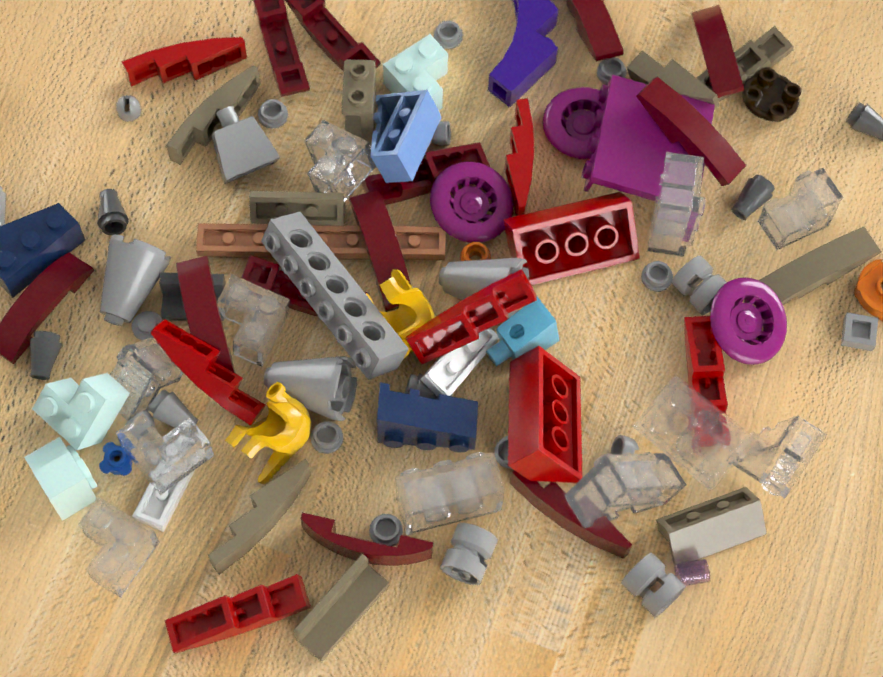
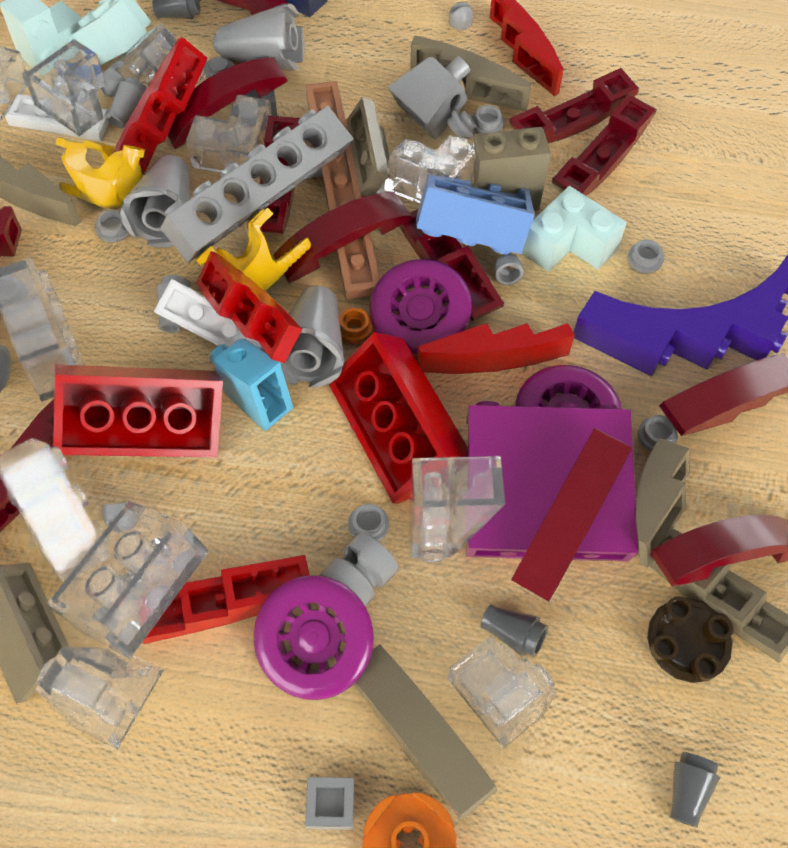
camera: 80 degrees right, 5 degrees down
(111, 214) = (335, 21): dark grey cone -> none
(277, 132) = (461, 124): none -> light grey plate
(426, 421) = (129, 296): dark blue wedge -> none

